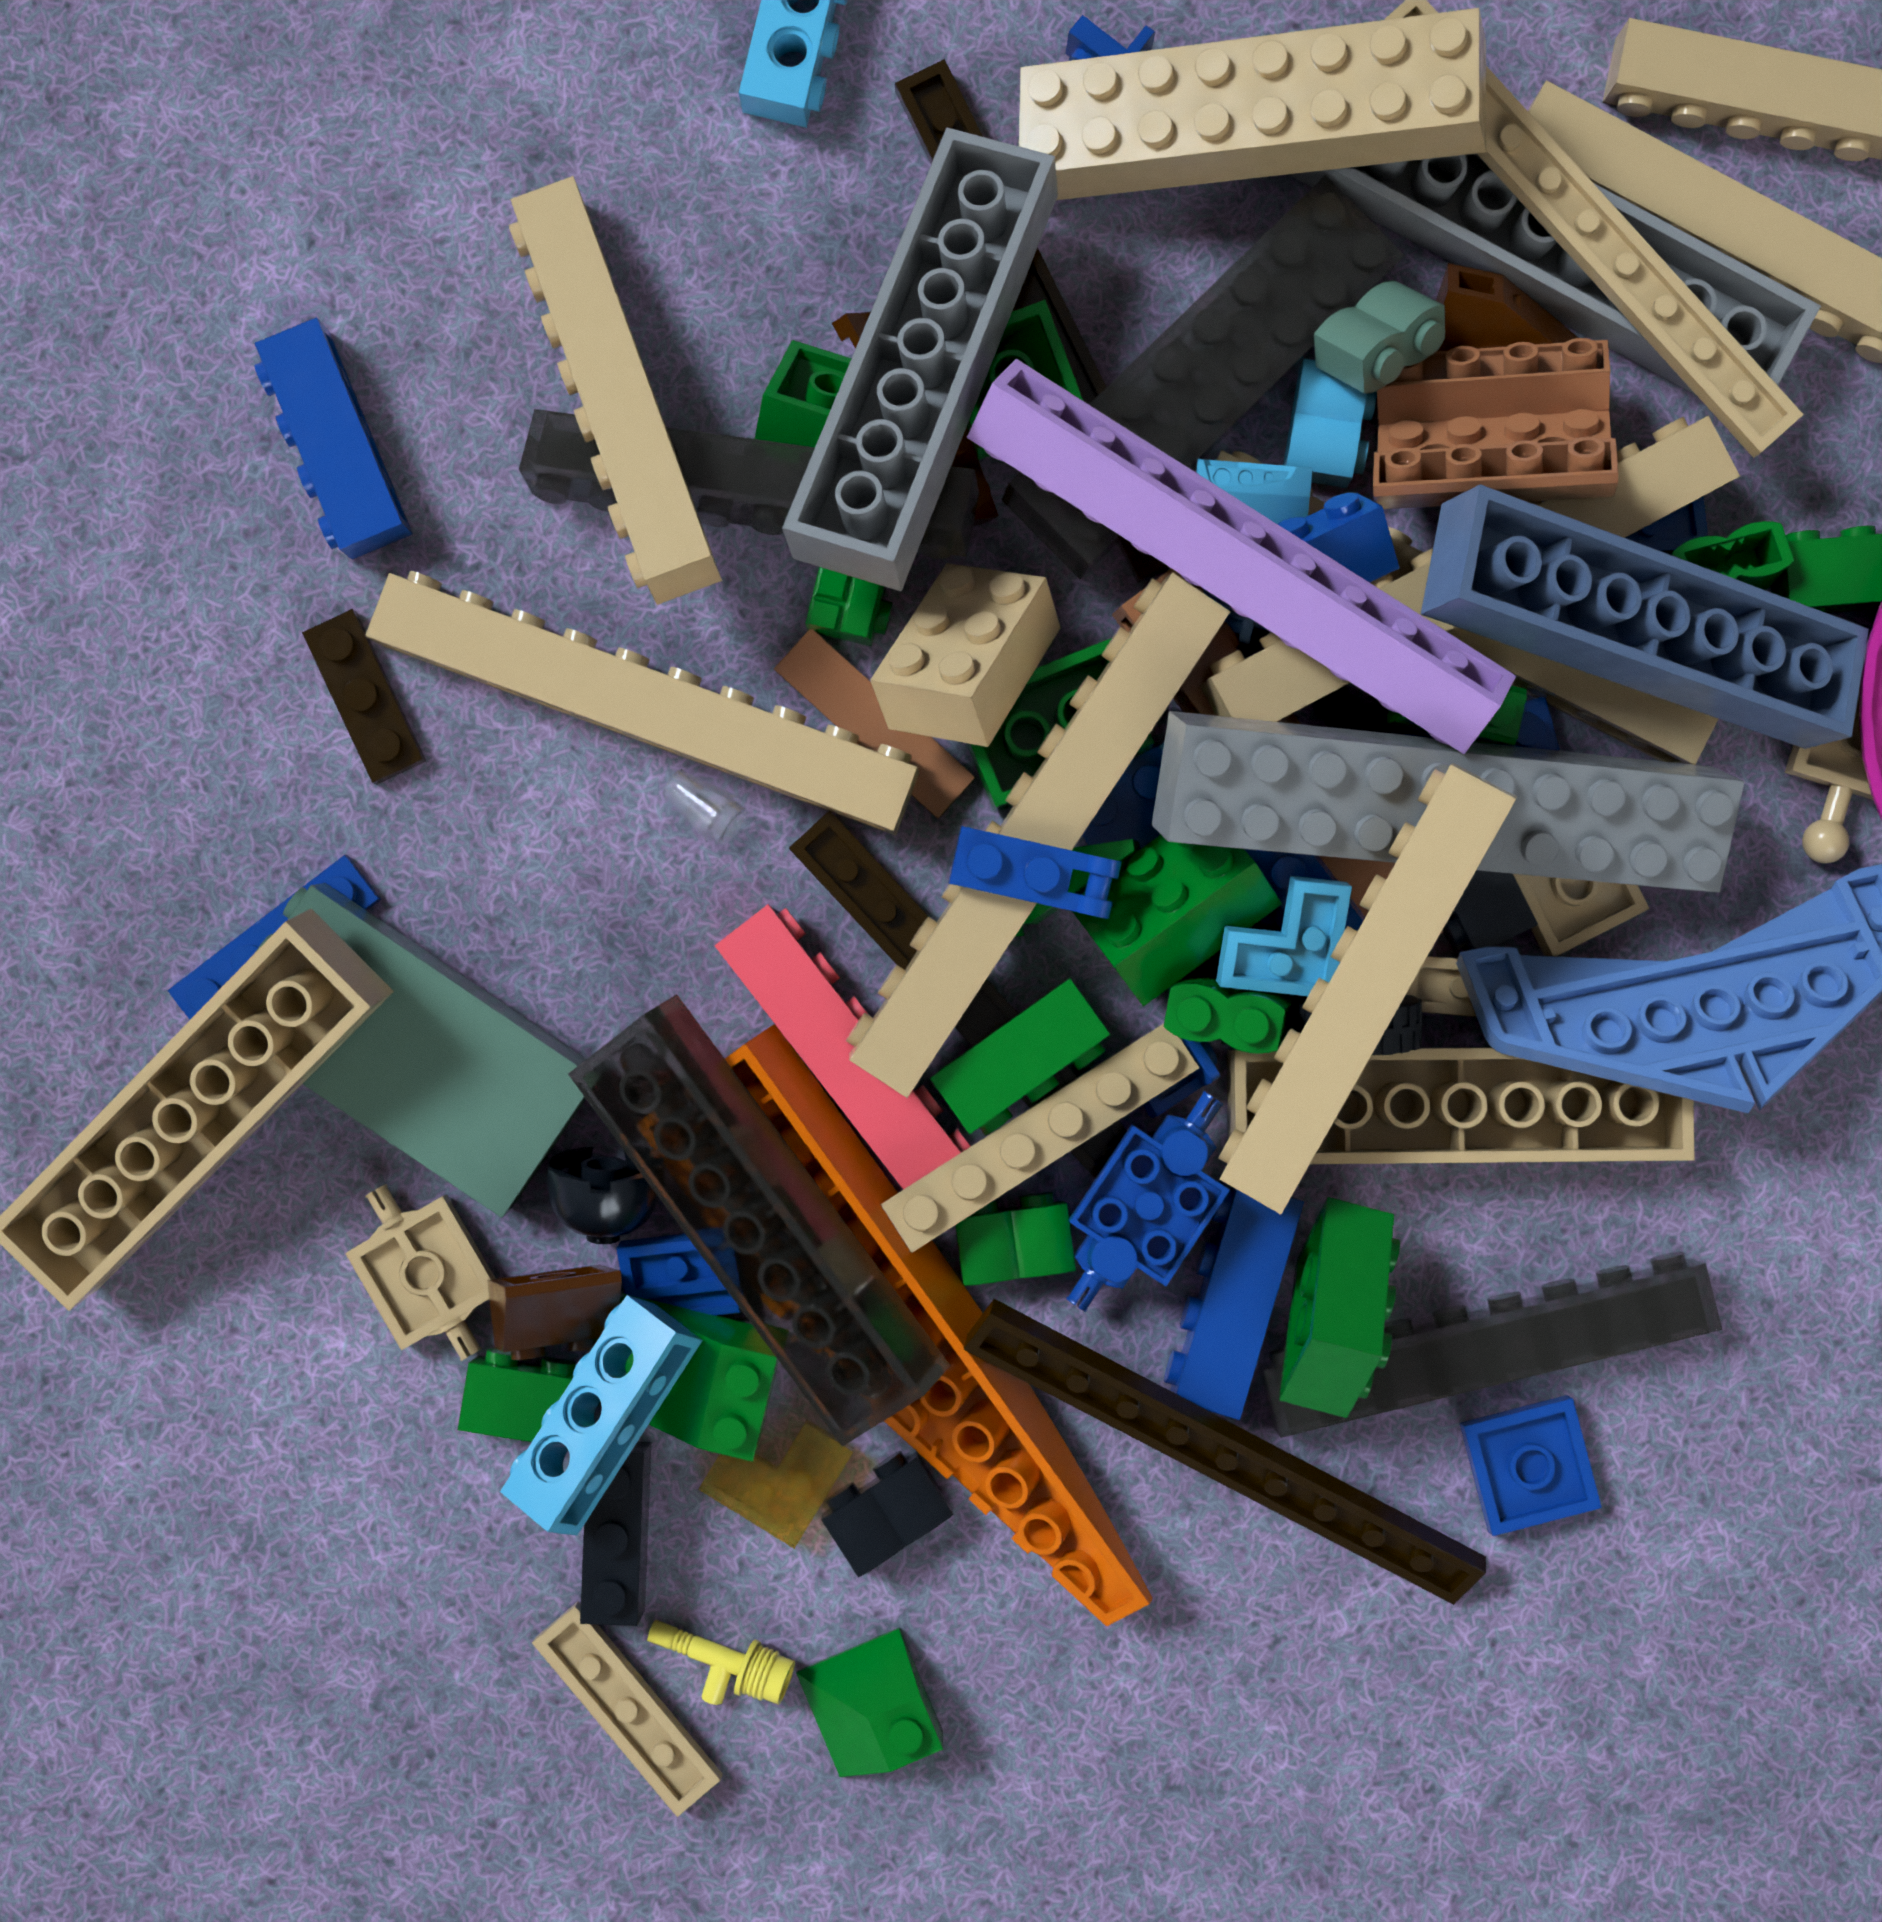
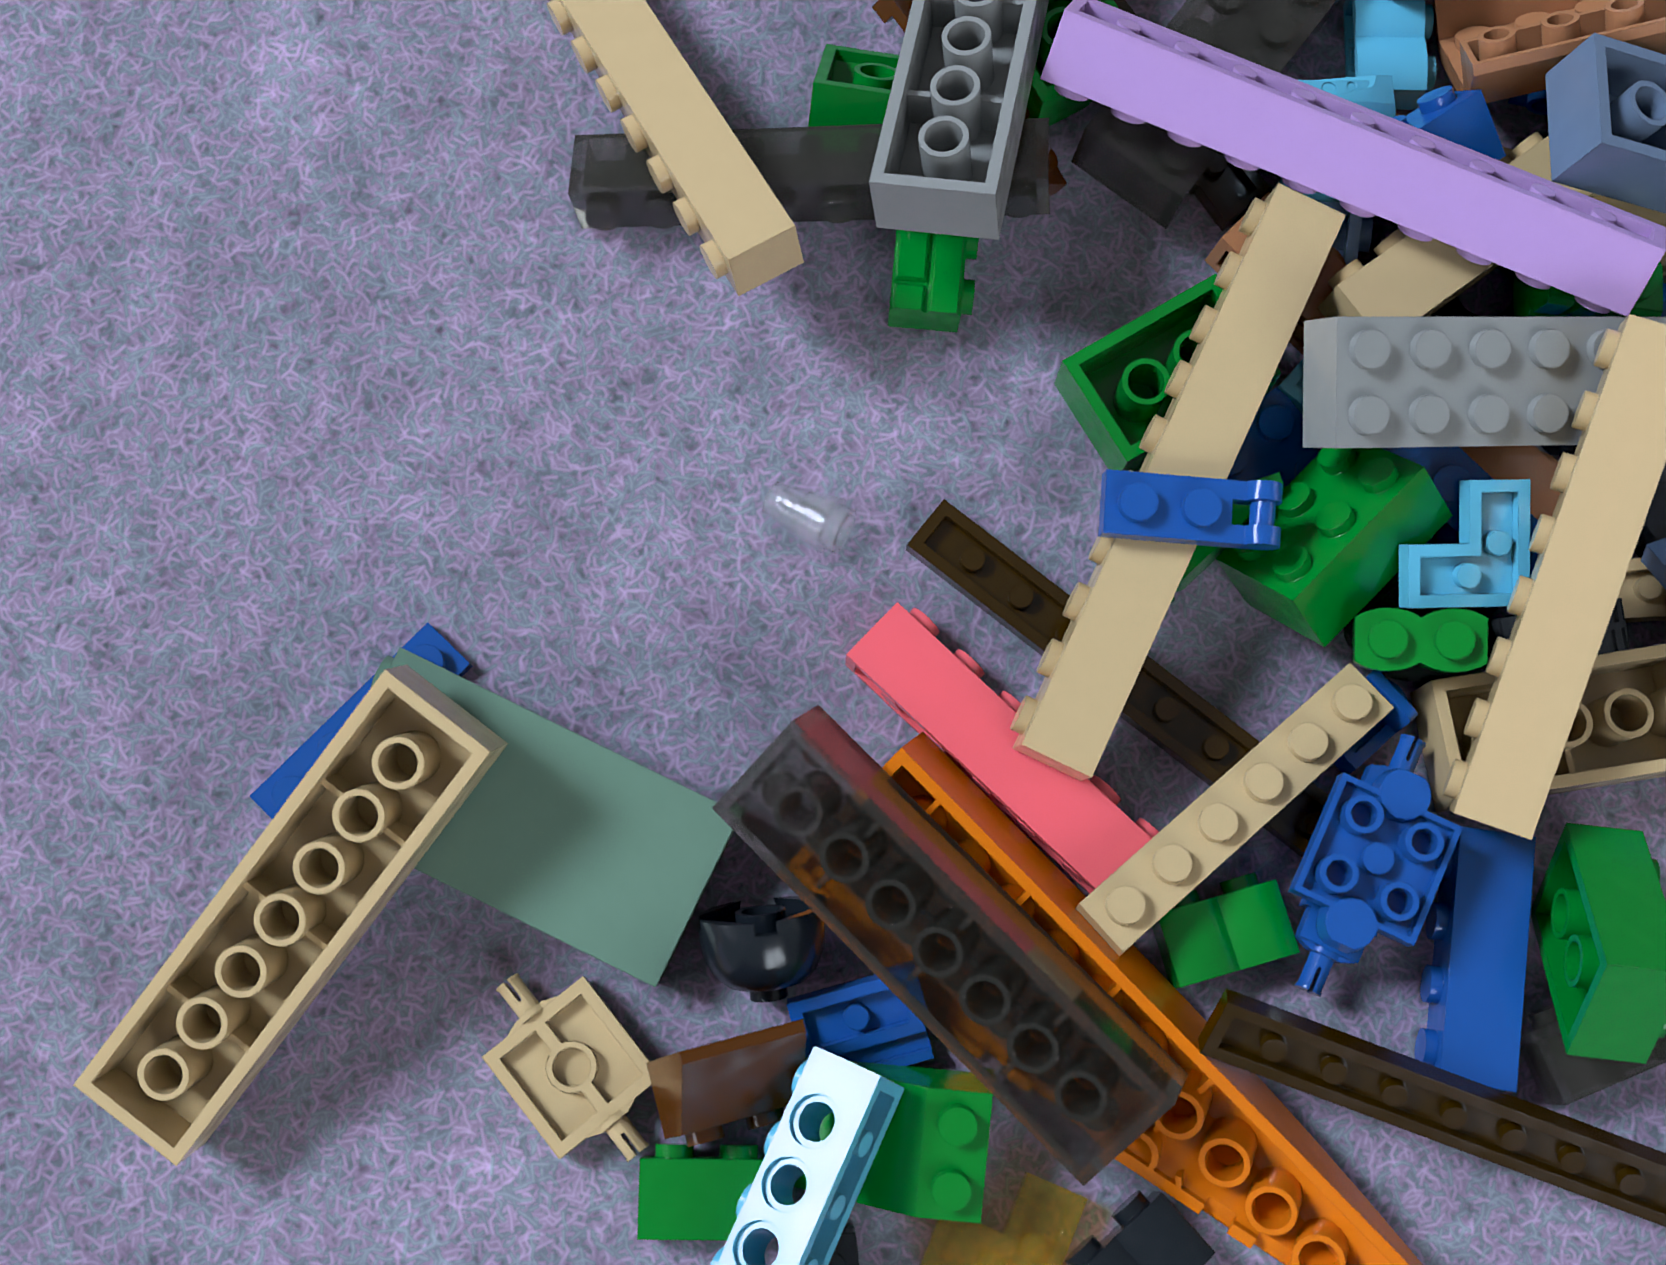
camera: 10 degrees left, 10 degrees down
(332, 438) = (367, 198): blue brick -> none
(364, 696) = (429, 456): dark brown plate -> none
(644, 703) = (732, 415): tan brick -> none
(851, 704) = (974, 408): nougat tile -> none
(966, 654) = (1069, 308): tan brick -> none
(1021, 1058) = (1200, 726): green brick -> none

